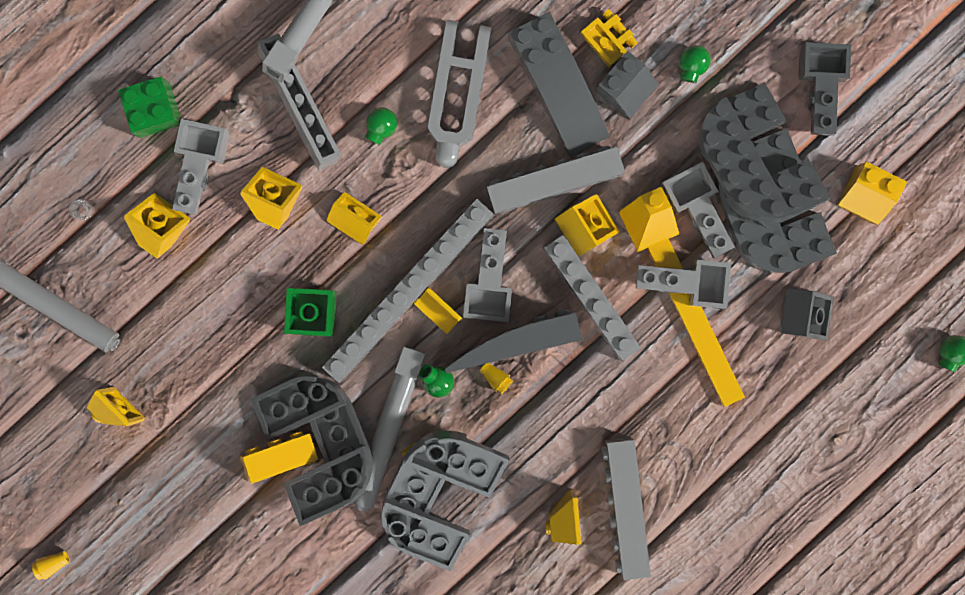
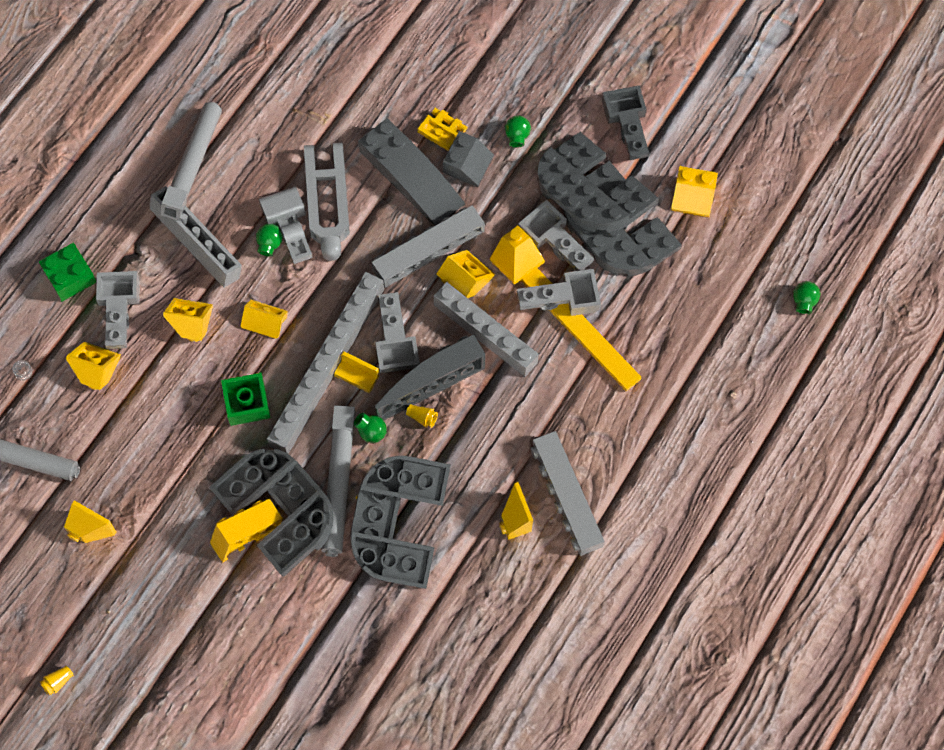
camera: 20 degrees left, 20 degrees down
(405, 92) = (284, 210): none -> light grey plate
(807, 314) = (672, 297): dark grey slope -> none

